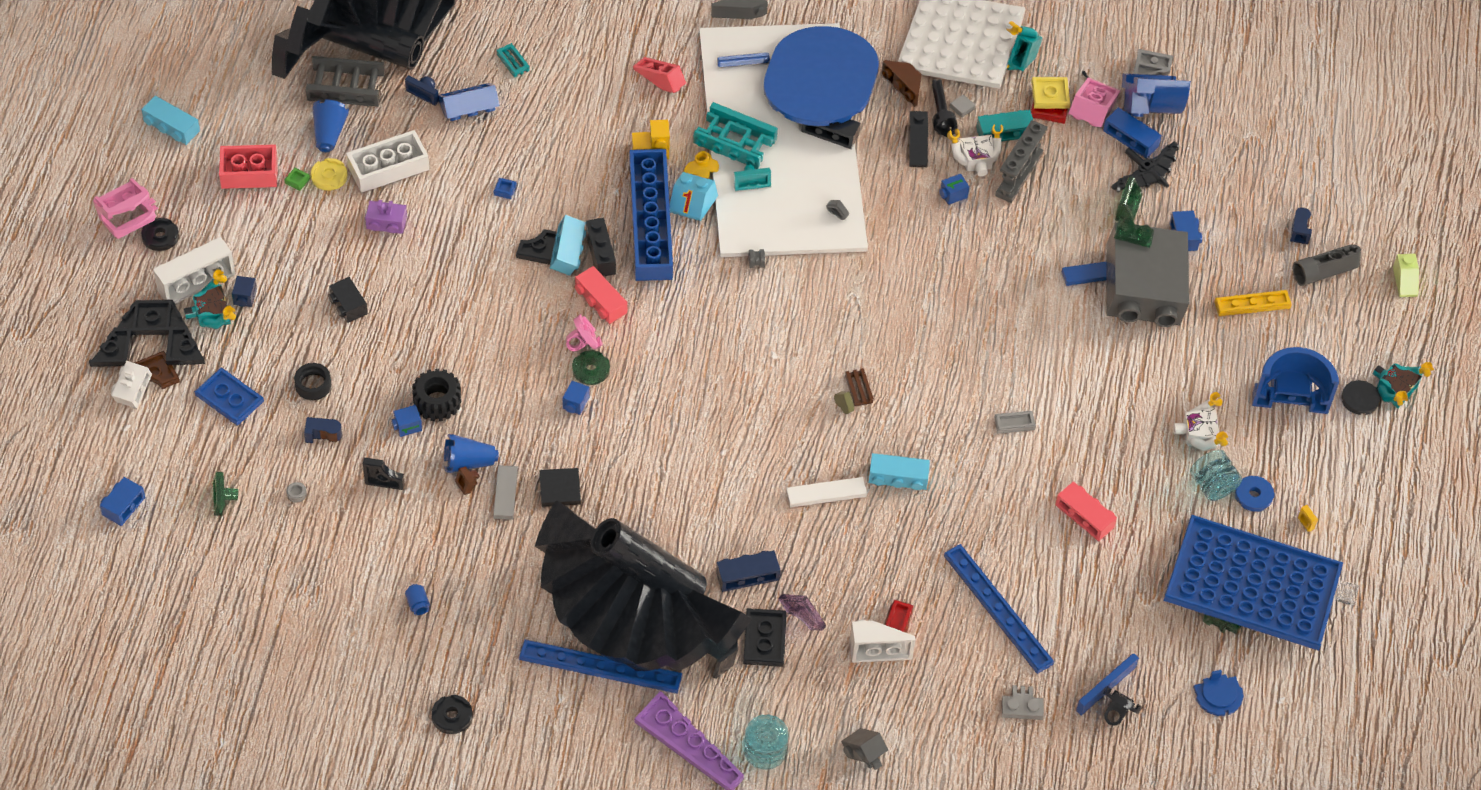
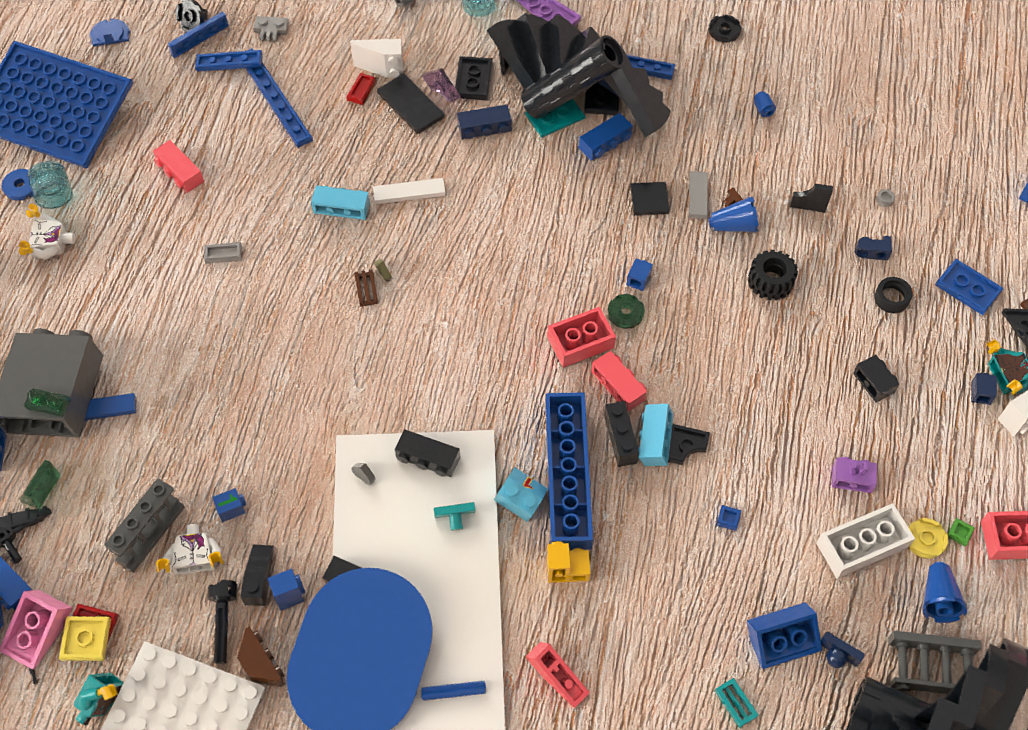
camera: 175 degrees left, 5 degrees up
(221, 494) = (953, 191): clear green tile -> none
(407, 421) = (799, 252): blue brick -> none
(585, 333) = (632, 331): bright pink tile -> none
(637, 329) = (581, 337): none -> coral brick
(702, 165) = (509, 538): yellow plate -> none
(741, 125) = (463, 585): teal fence -> none
(756, 258) = (455, 421): dark grey wheel -> none
(780, 224) = (427, 453): none -> black brick
(835, 599) = (410, 103): none -> black tile
(890, 119) = (287, 589): none -> blue brick
(962, 105) = (195, 628): light grey tile -> none
(1013, 124) = (151, 590): teal brick -> none
(1061, 648) = (229, 60): none -> blue tile

